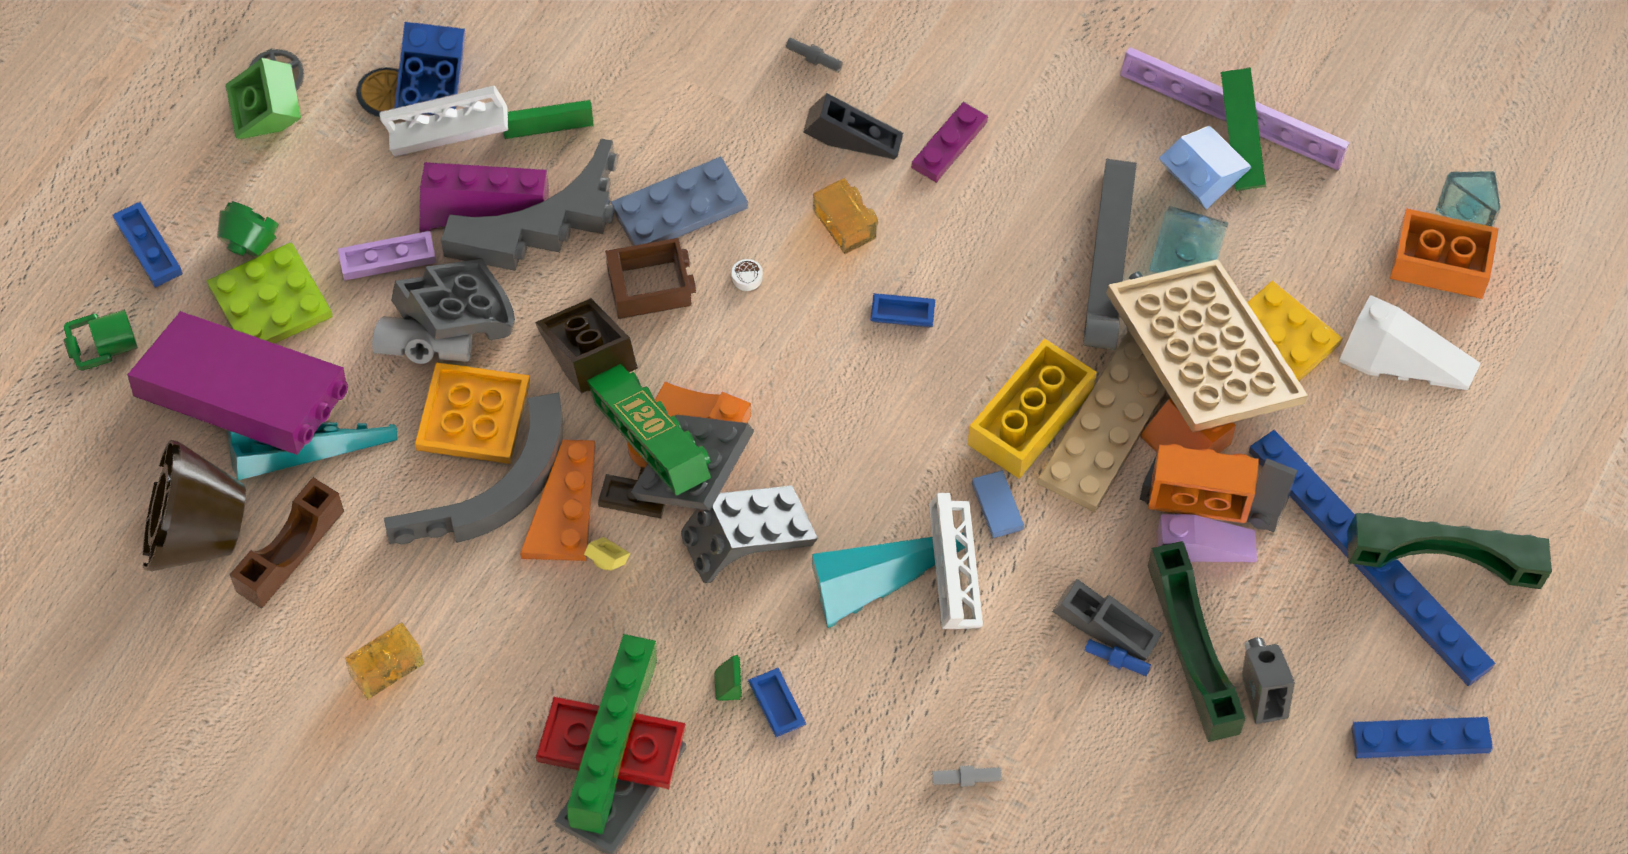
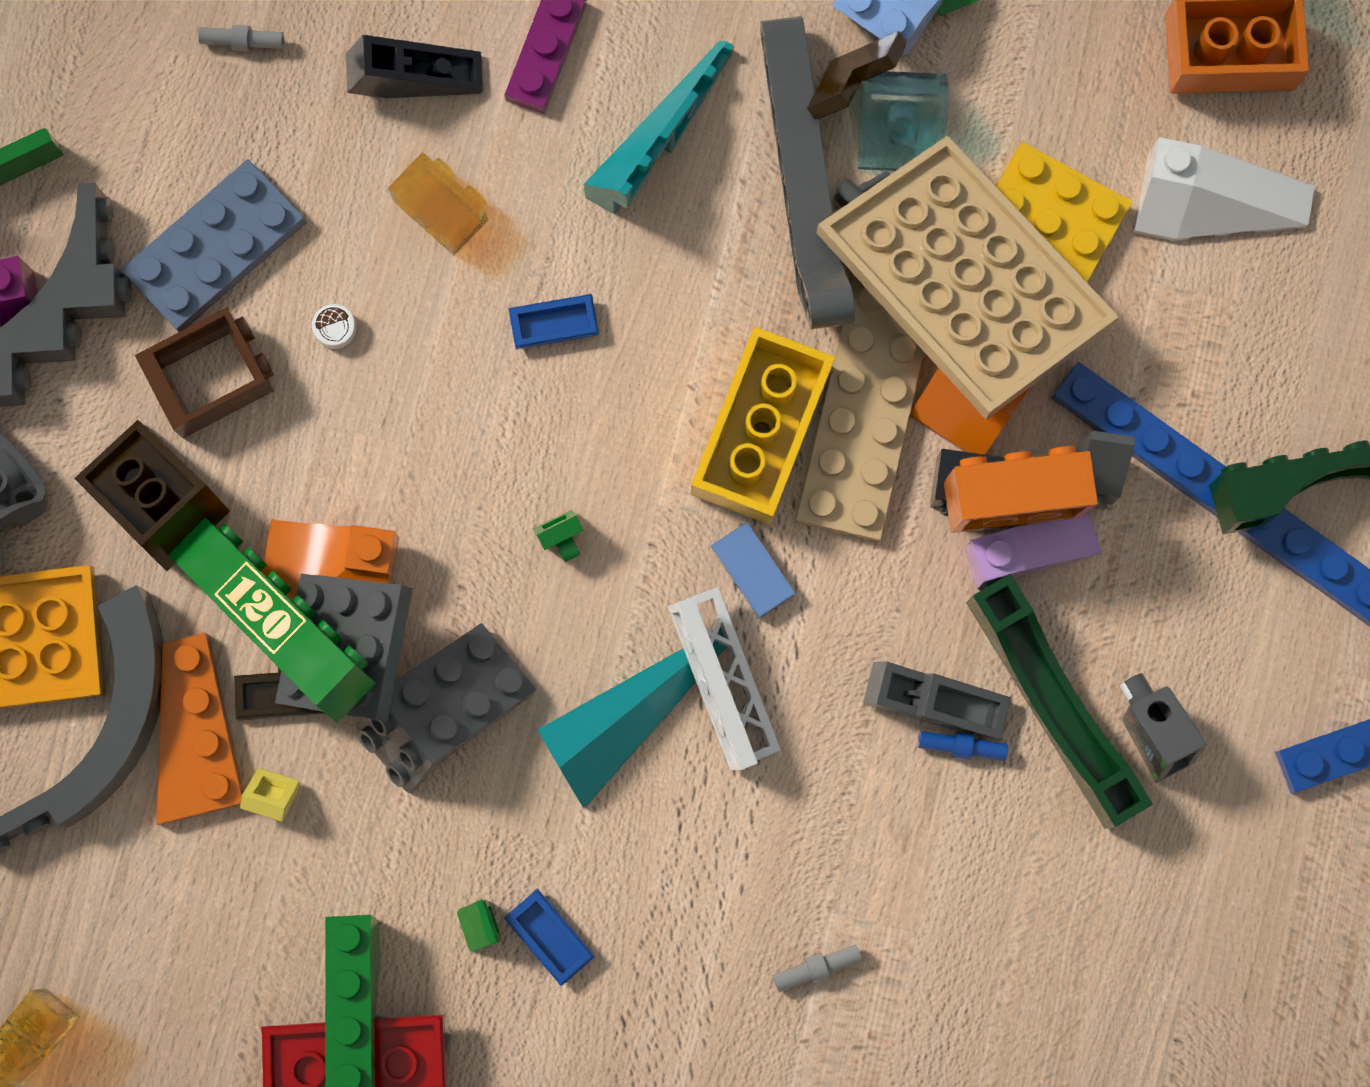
camera: 15 degrees left, 20 degrees up
(740, 83) = (241, 38): none -> light grey bar
(866, 442) = (559, 533): none -> green tile
(1017, 209) = (627, 168): none -> teal wedge
(1161, 202) = (851, 69): none -> dark brown tile

